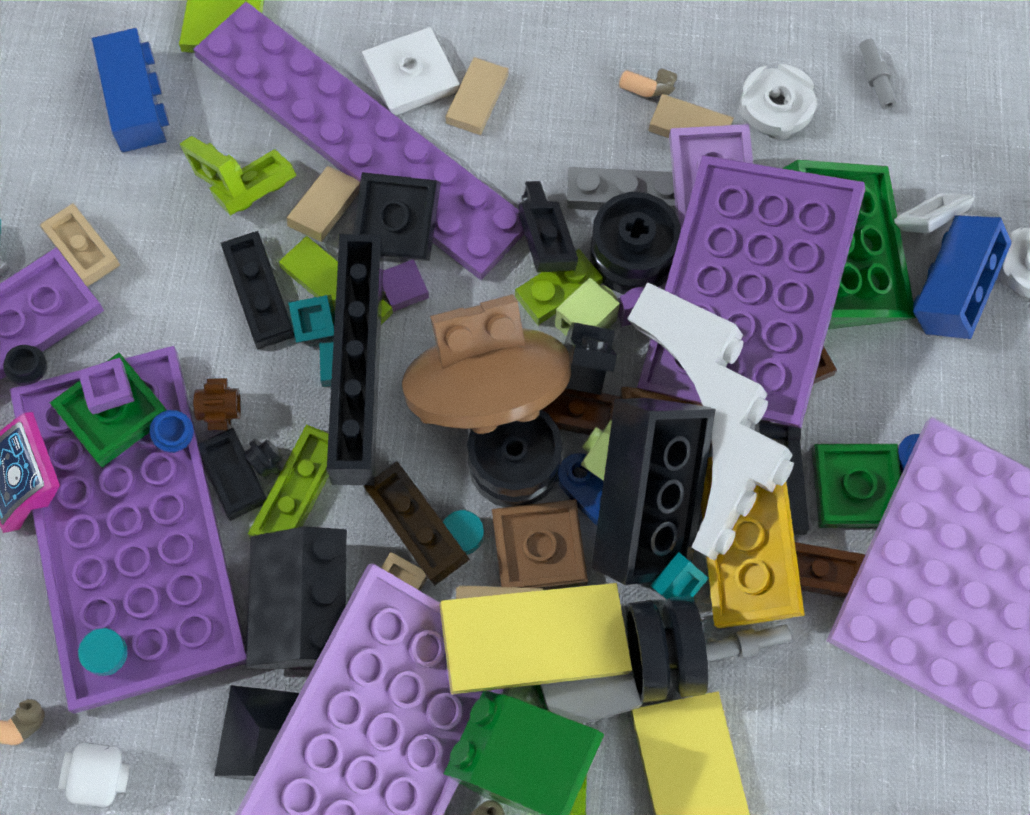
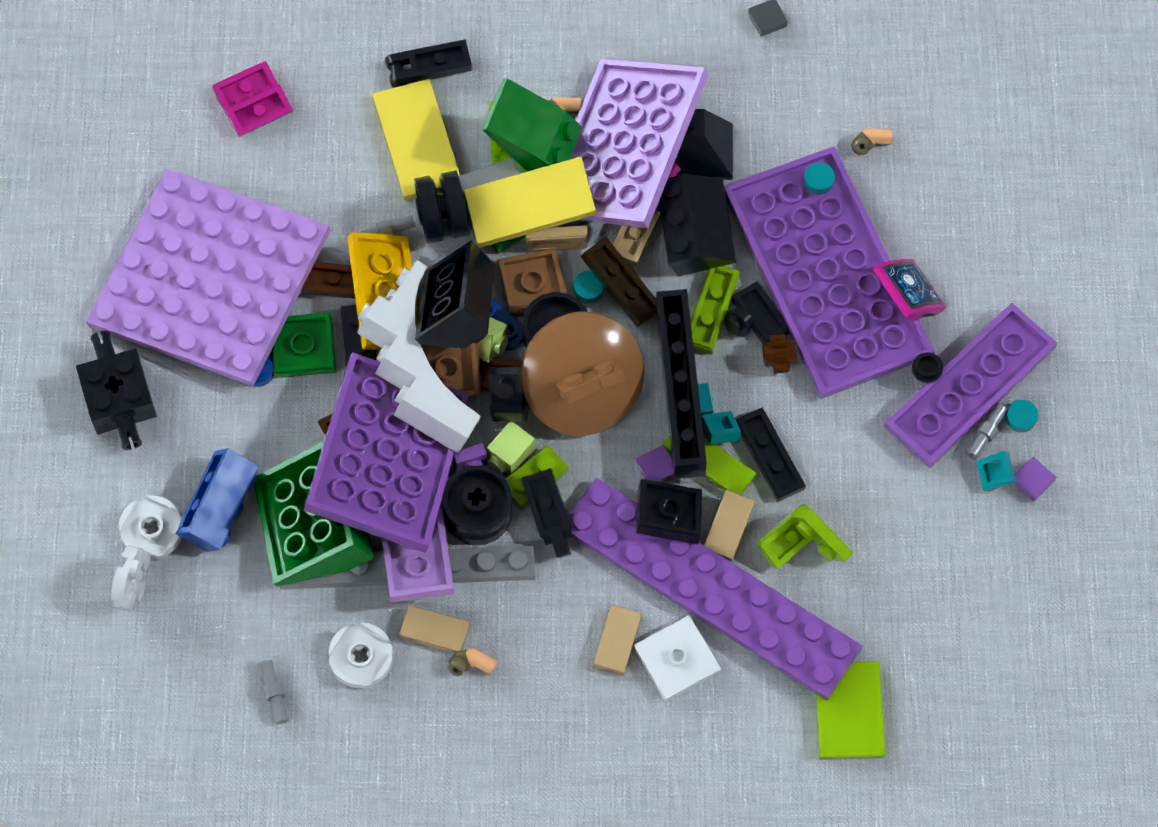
camera: 175 degrees right, 0 degrees up
(80, 244) = (915, 472): tan plate -> none
(93, 774) = (808, 112): white head -> none
(105, 386) = (858, 341): medium lavender plate -> none
(114, 429) = (855, 339): green tile -> none
(130, 89) = (908, 610): blue brick -> none
(171, 431) = (806, 323): blue plate -> none
(679, 578) = (435, 256): teal tile -> none
(934, 212) = (236, 555): white tile -> none

